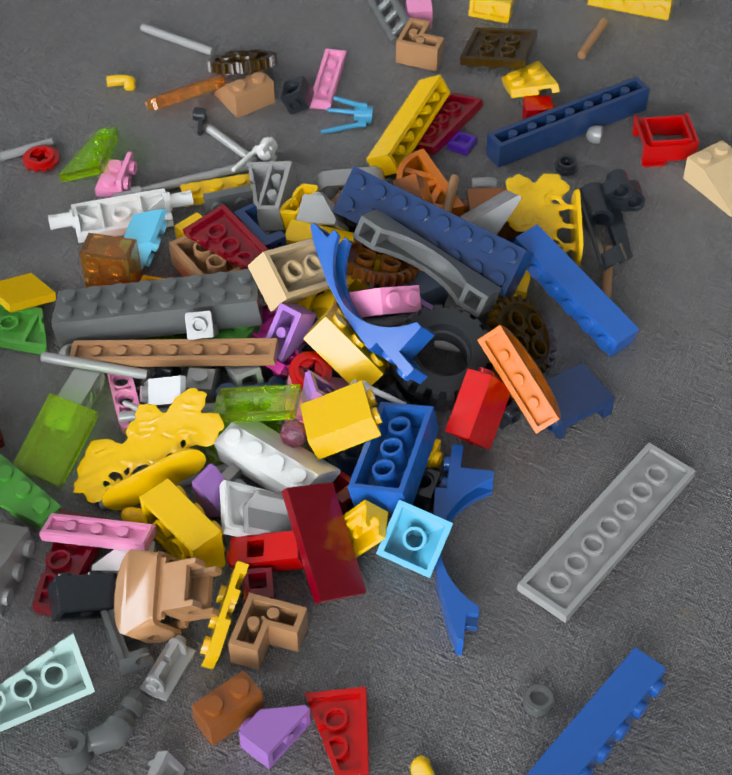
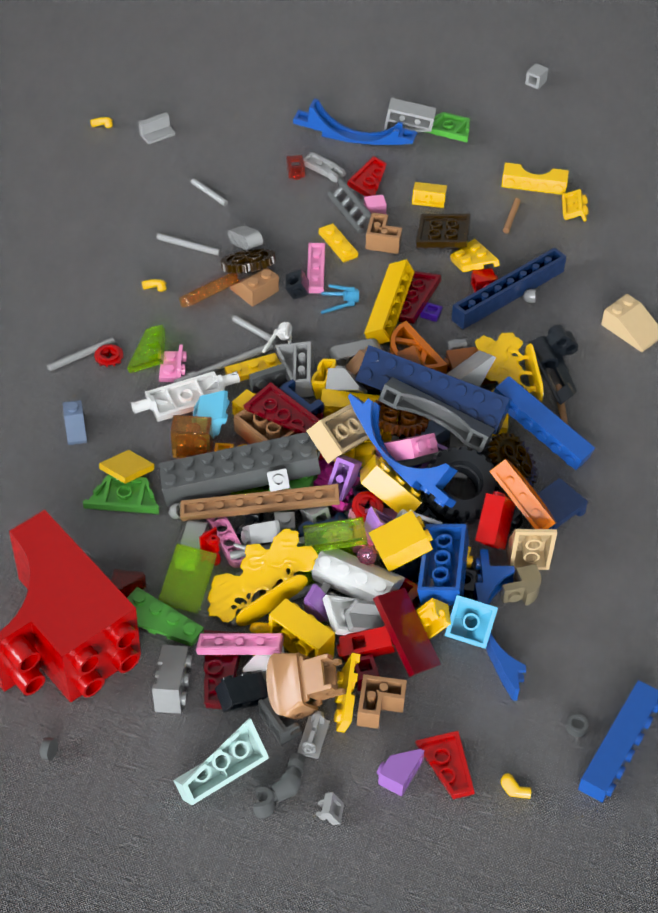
camera: 10 degrees left, 0 degrees up
(94, 365) = (201, 518): light grey bar -> none
(94, 396) = (210, 542): none -> red hinge
(199, 115) = (224, 307): black hand -> none
(227, 707) = (365, 757): dark orange brick -> none
(246, 35) = (245, 237): none -> light grey beam
(363, 52) = (338, 242): none -> yellow plate
(451, 193) = (436, 356): medium nougat bar -> none
(507, 501) = (525, 586): none -> dark tan brick
(522, 450) = (531, 547): none -> tan slope
(566, 165) = (514, 323): black plate -> none
(605, 532) = (600, 600): light grey plate -> none
(658, 152) = (580, 306): red piece -> none
(677, 30) = (575, 205): none -> yellow bracket

